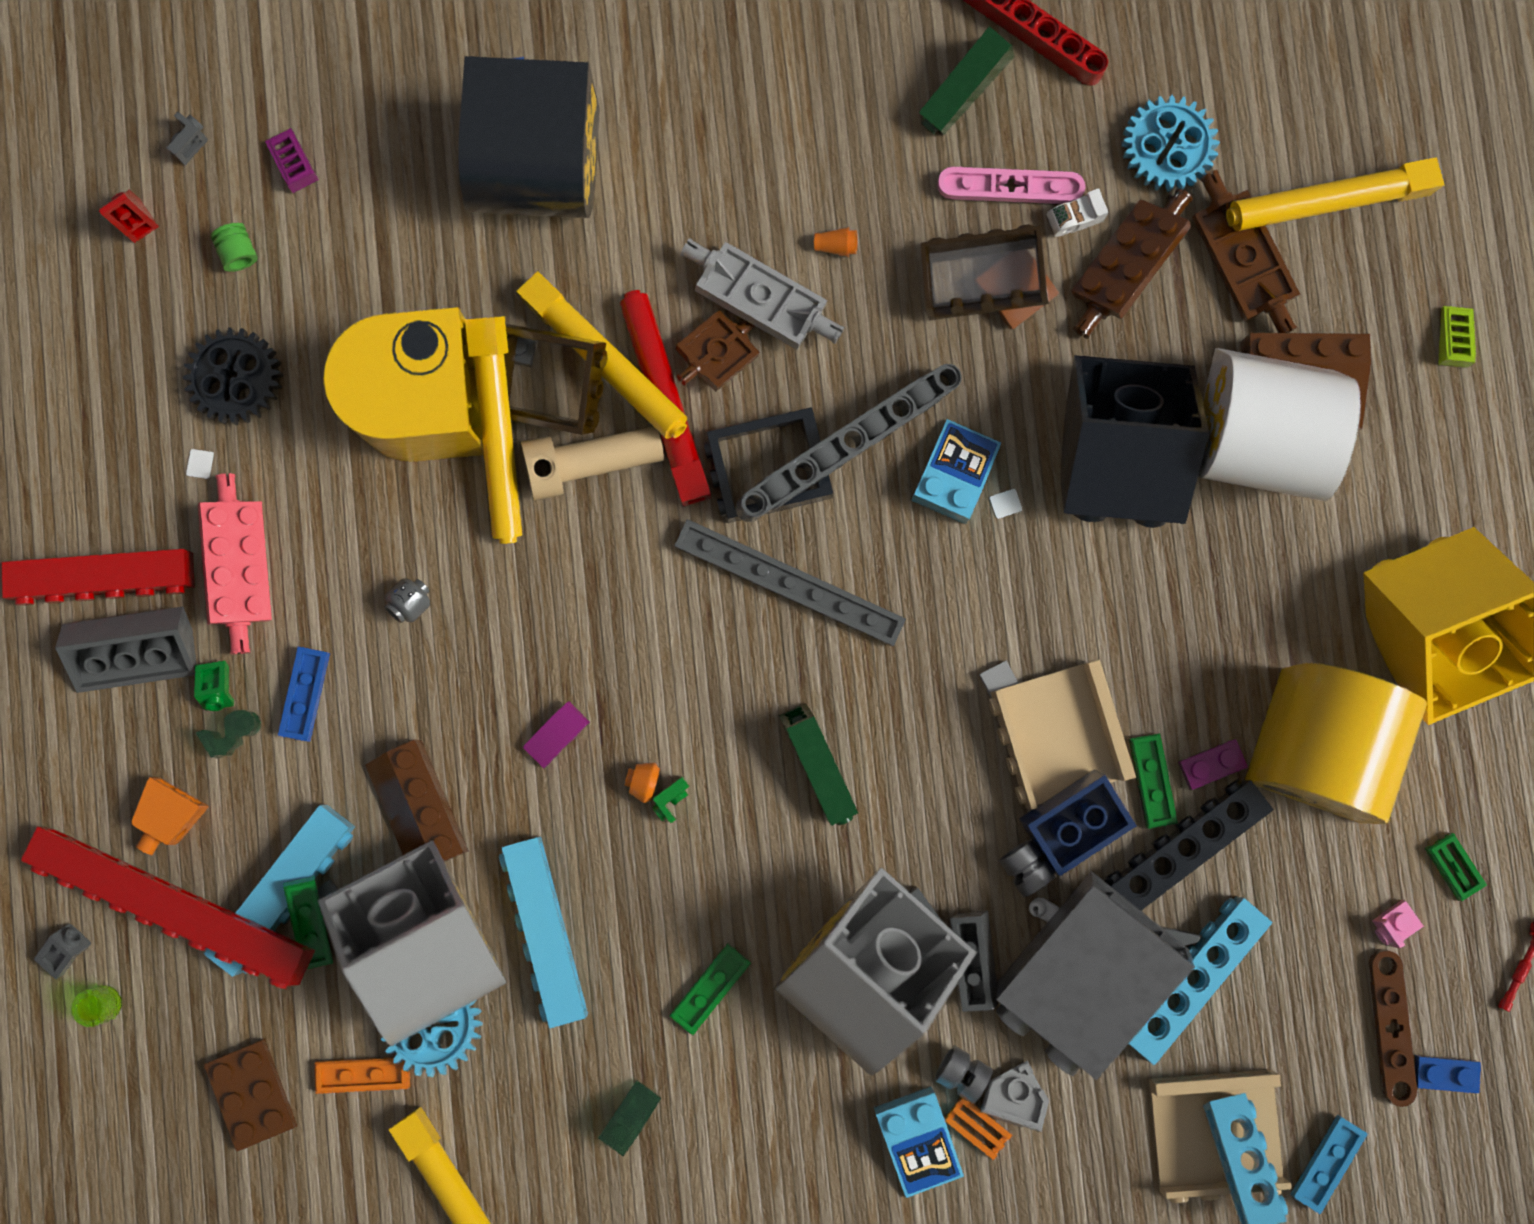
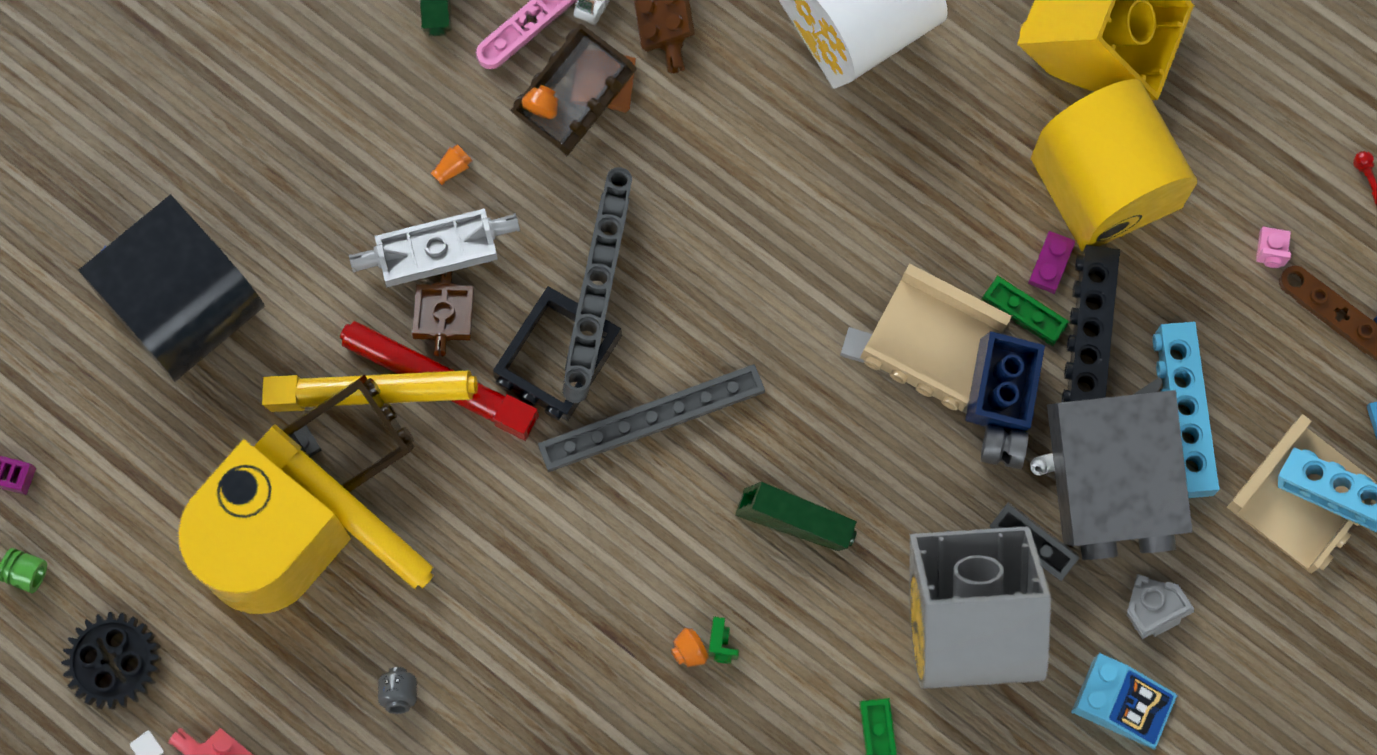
camera: 45 degrees left, 10 degrees down
(556, 734) = (596, 679): magenta slope -> none
(588, 458) = (425, 471): tan piece -> none
(949, 259) = (541, 102): none -> orange cone
(955, 1067) = (1095, 625): flat silver wheel -> none
(956, 472) = (688, 238): slope -> none
(998, 1143) = (1176, 649): orange tile -> none
(1006, 503) = (741, 227): white sticker -> none
(1132, 440) = (783, 103): black brick -> none
(1433, 853) = (1267, 184): green tile -> none

